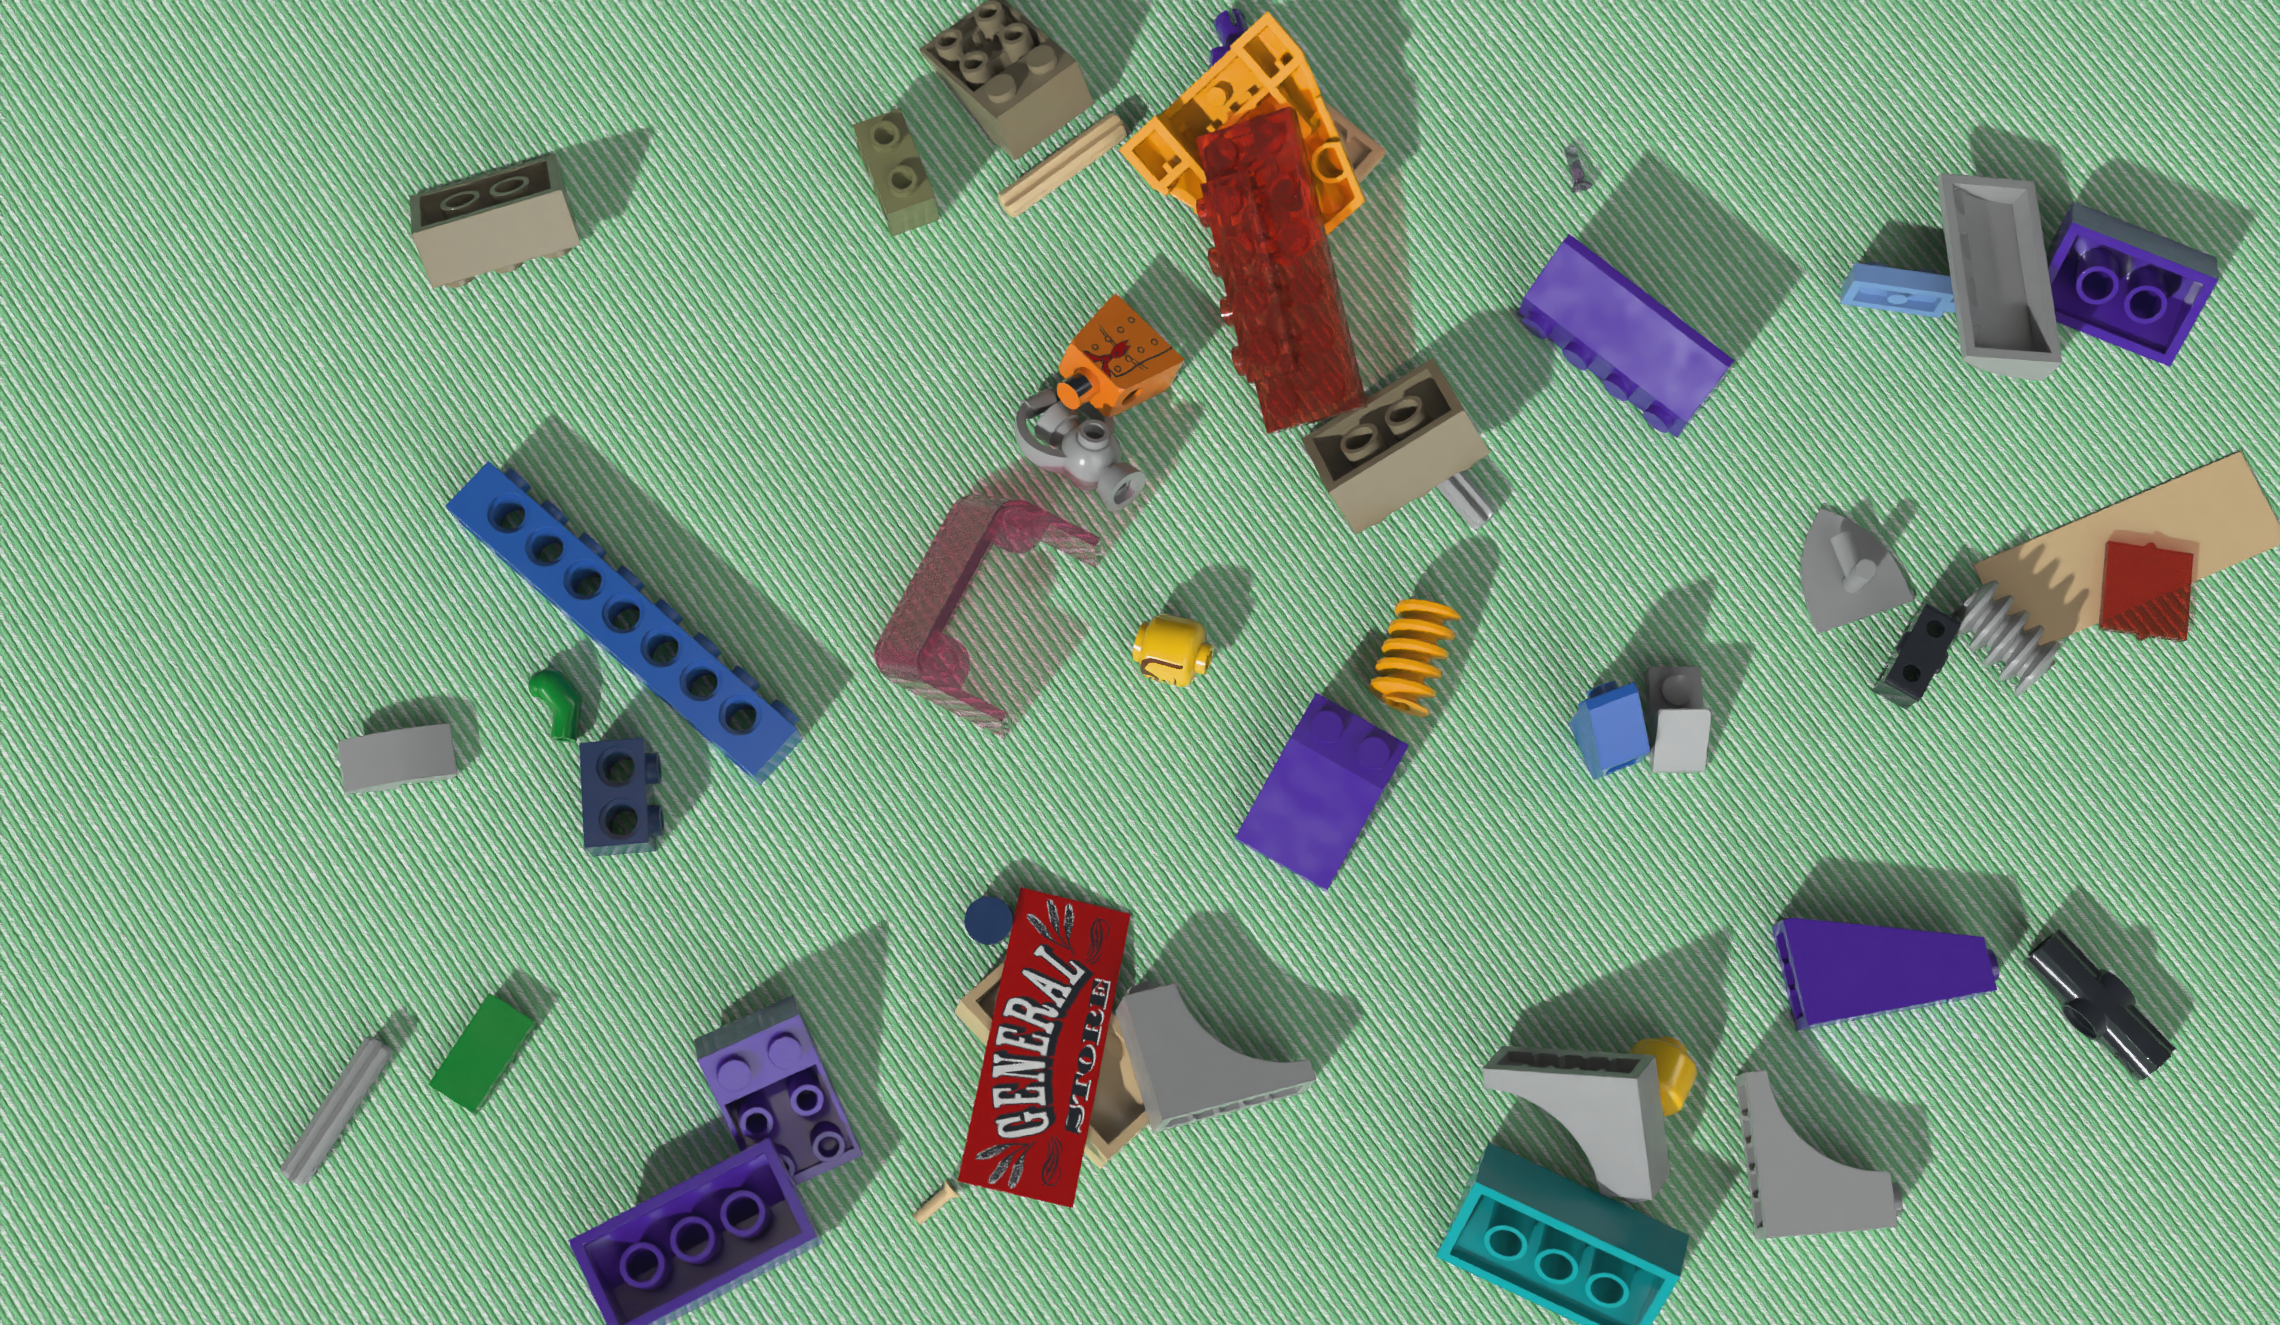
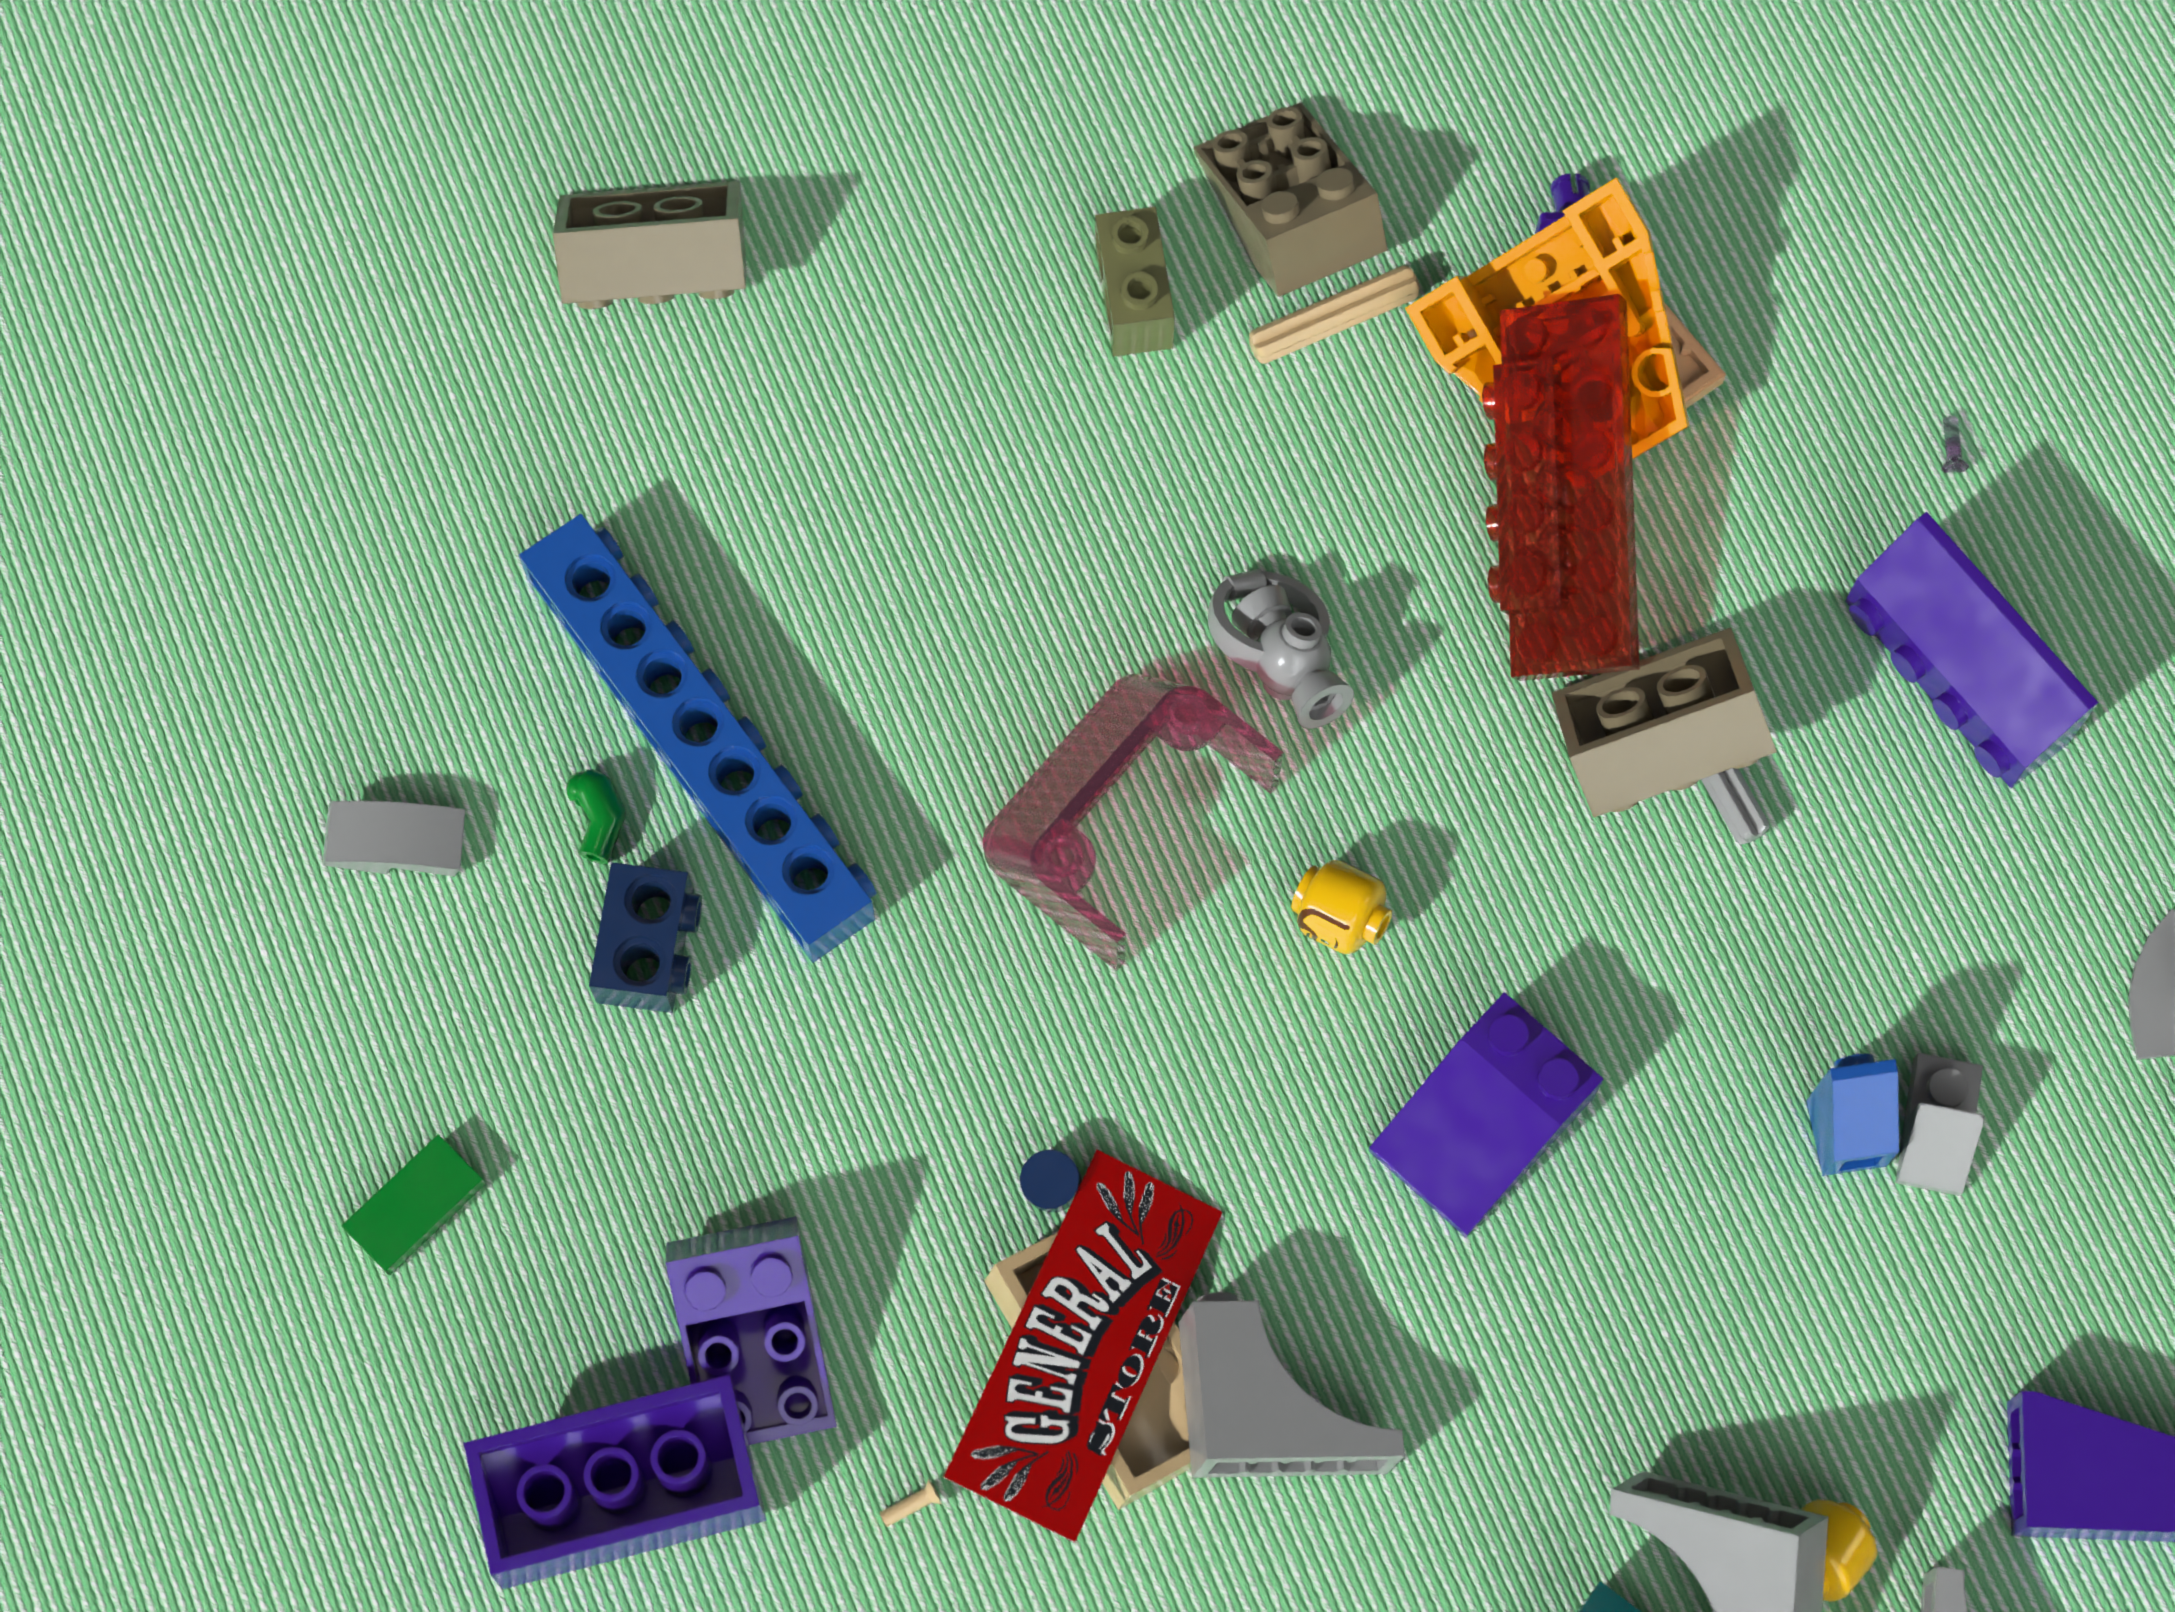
camera: 15 degrees right, 5 degrees down
(335, 1111) = (226, 1233): light grey axle -> none
(1116, 362) = (1348, 554): orange torso -> none
(1411, 653) = (1628, 974): light orange piece -> none

